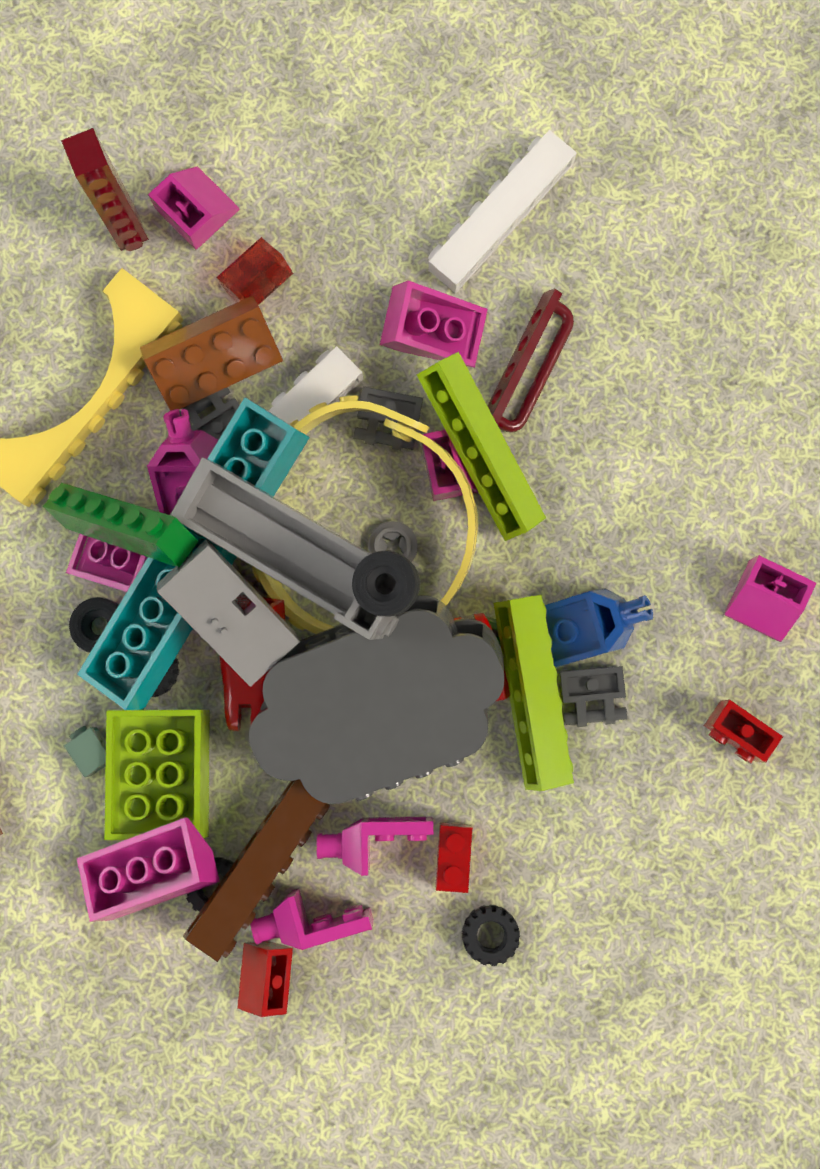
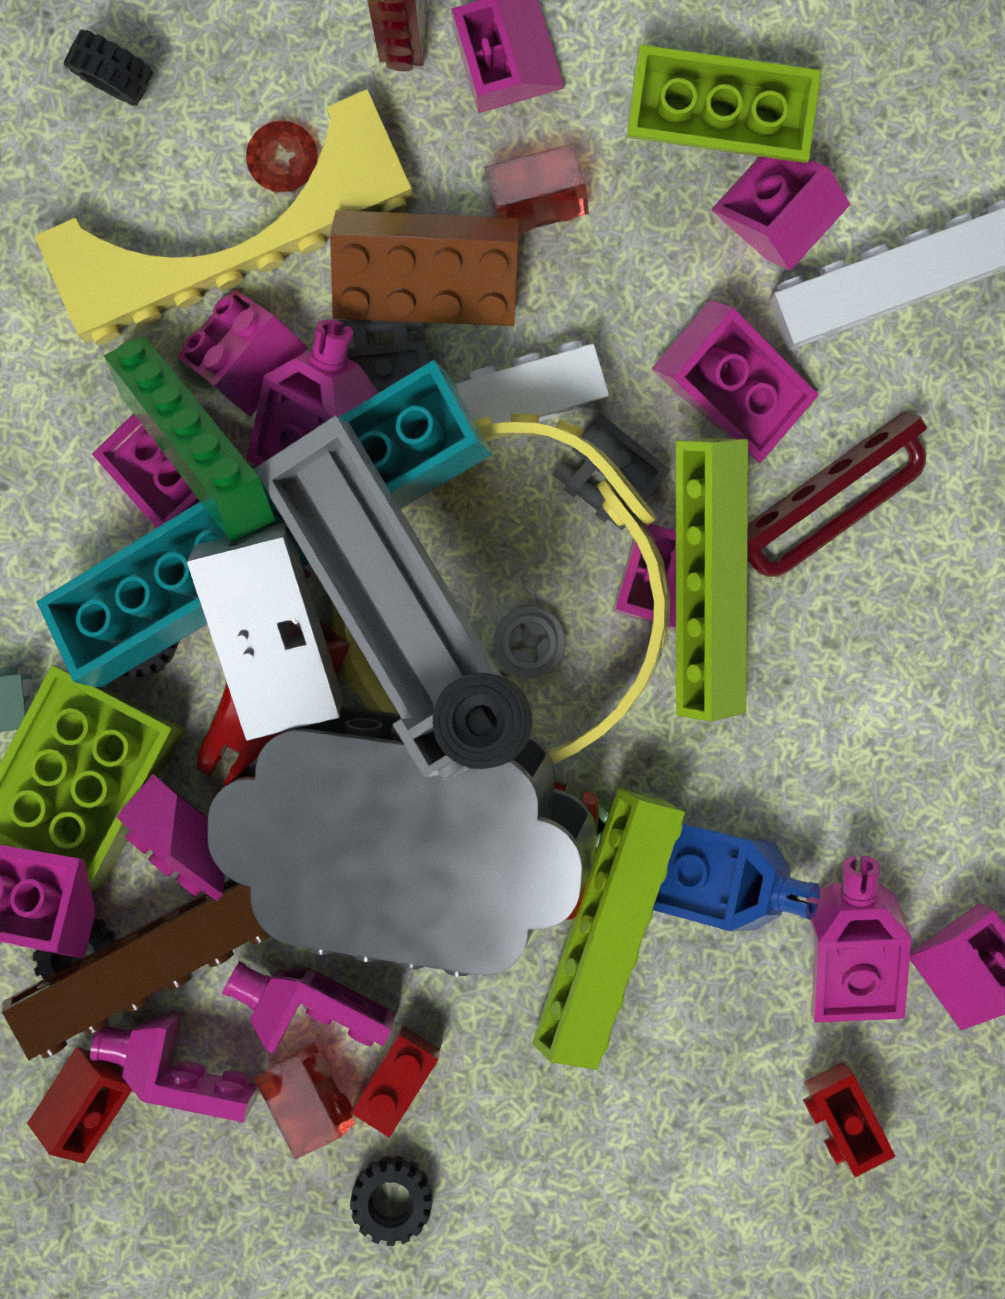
camera: 25 degrees right, 5 degrees up
(82, 619) = (82, 526): black tyre -> none
(90, 321) = (262, 149): none -> clear red gear
(123, 461) = (239, 348): none -> dark pink slope
(237, 773) = (176, 836): none -> dark pink slope
(338, 167) = (723, 103): none -> lime slope
(404, 899) = (305, 1100): none -> clear red brick
(406, 209) = (783, 207): none -> dark pink slope
(593, 685) = (687, 957): dark grey plate -> none
(692, 624) = (859, 948): none -> dark pink plate

